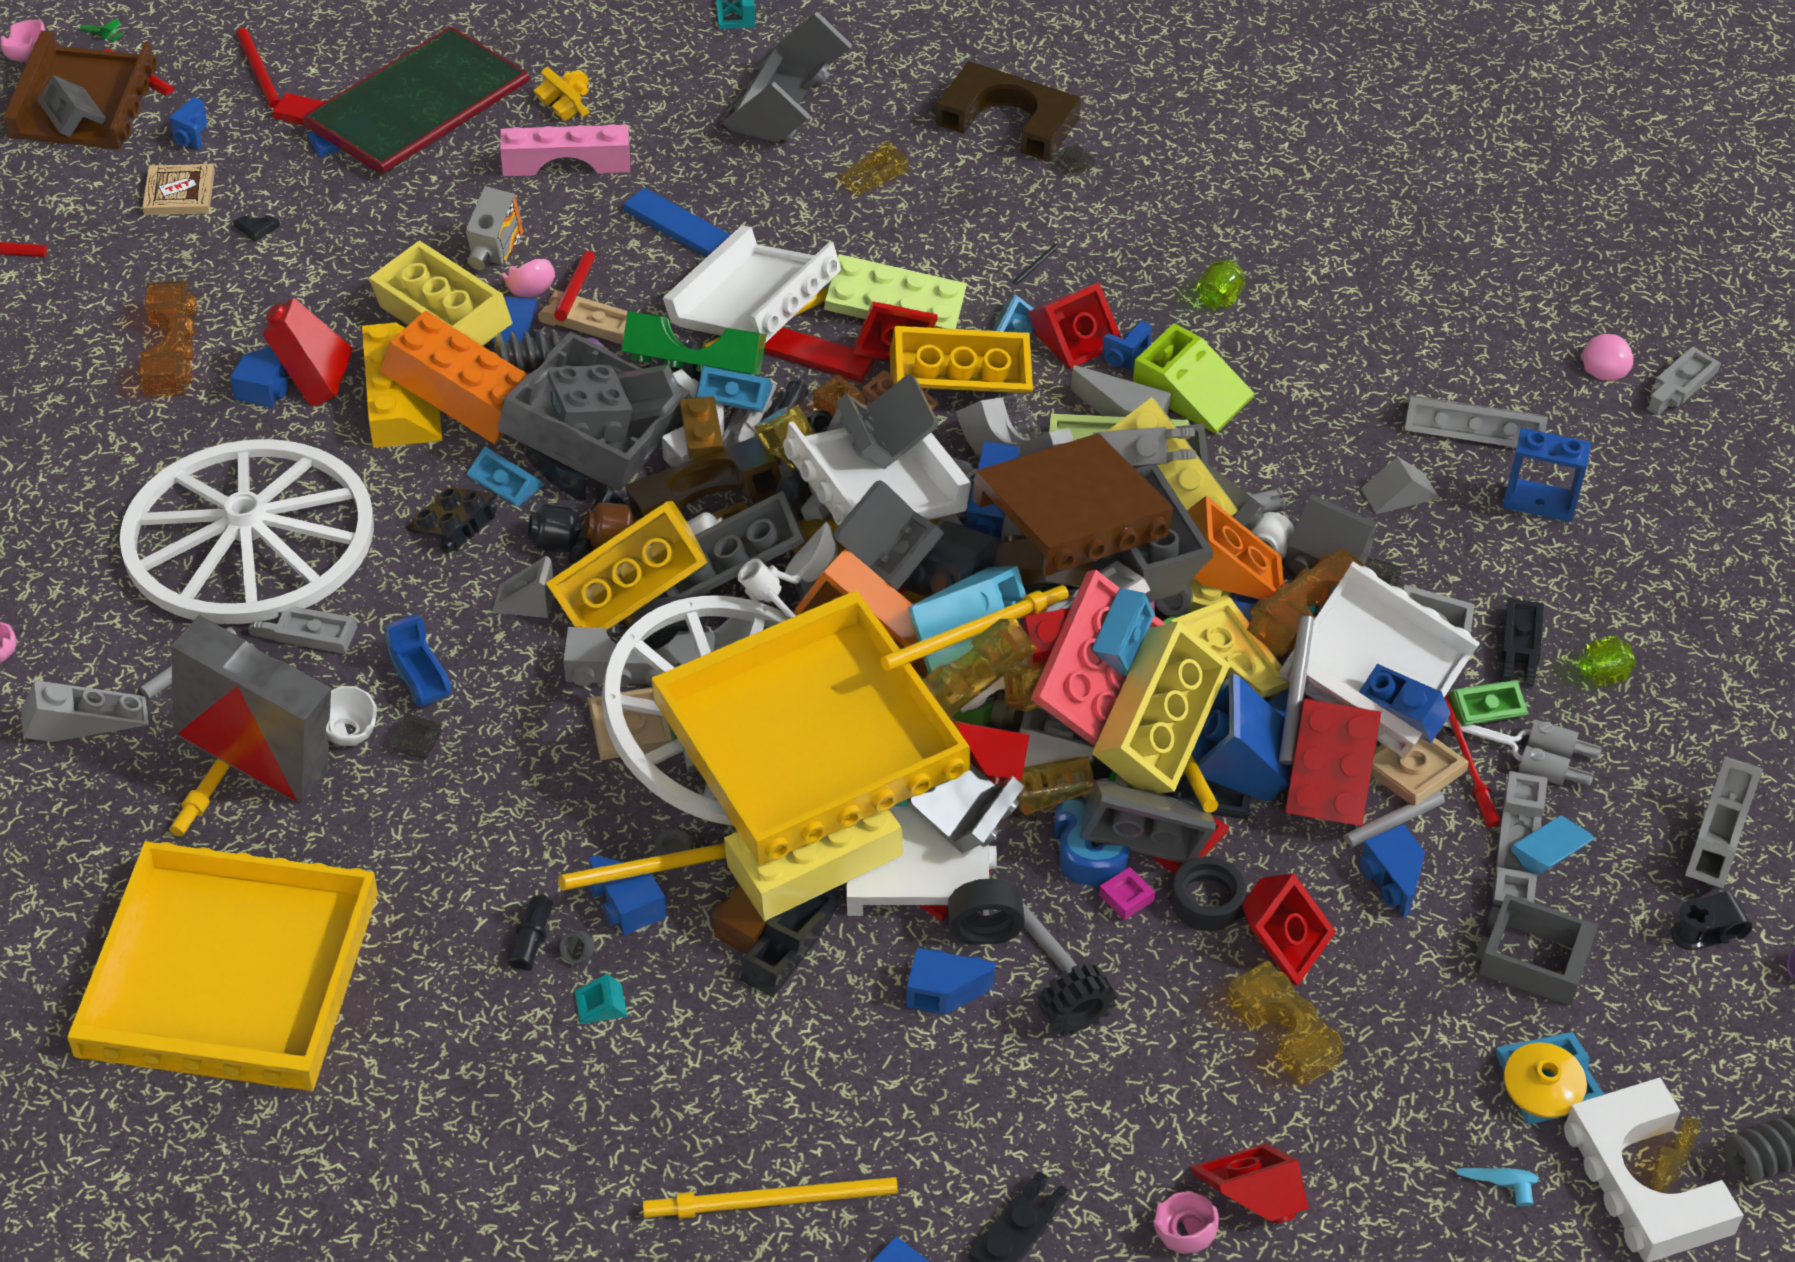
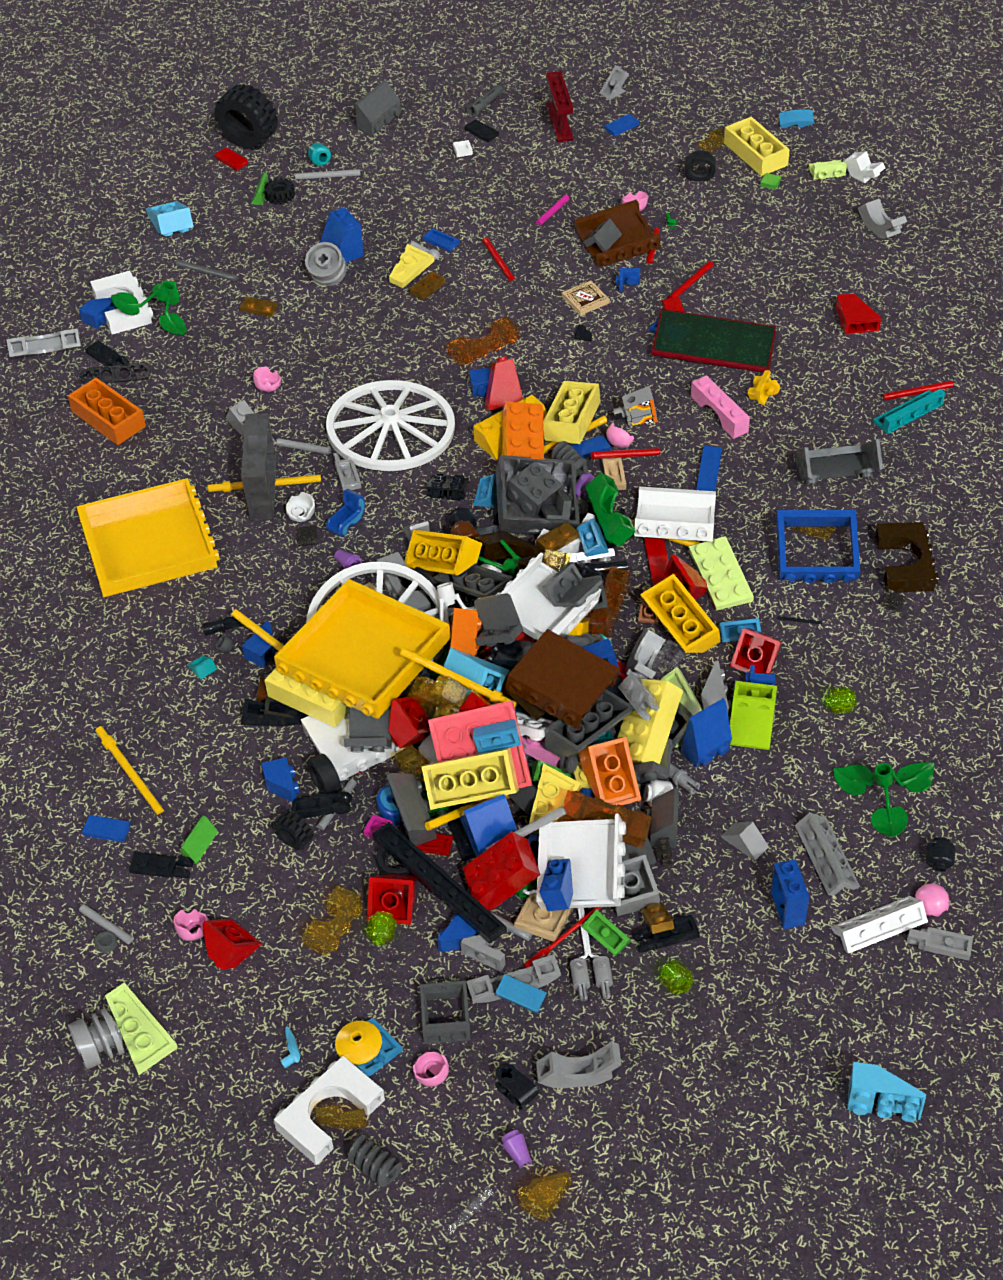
camera: 65 degrees right, 0 degrees up
(519, 705) = (347, 559): none -> medium lavender cone
(720, 502) = (509, 566): none -> green plant
(908, 212) = (817, 518): none -> blue window
(1001, 1149) = (199, 839): none -> bright green slope
(1039, 948) = (322, 804): none -> black hinge
(1221, 439) = (707, 734): none -> blue slope
(1299, 849) = (439, 882): none -> black tile
(1335, 965) = (381, 928): none -> clear neon green head
(1362, 339) = (856, 778): none -> green plant
(1447, 859) = (480, 950): none -> light grey slope
(1504, 632) = (657, 918): none -> pearl gold plate
(1542, 314) = (940, 854): none -> black head
(1624, 414) = (880, 923): none -> white fence
(1636, 998) = (434, 1063): none -> bright pink hair

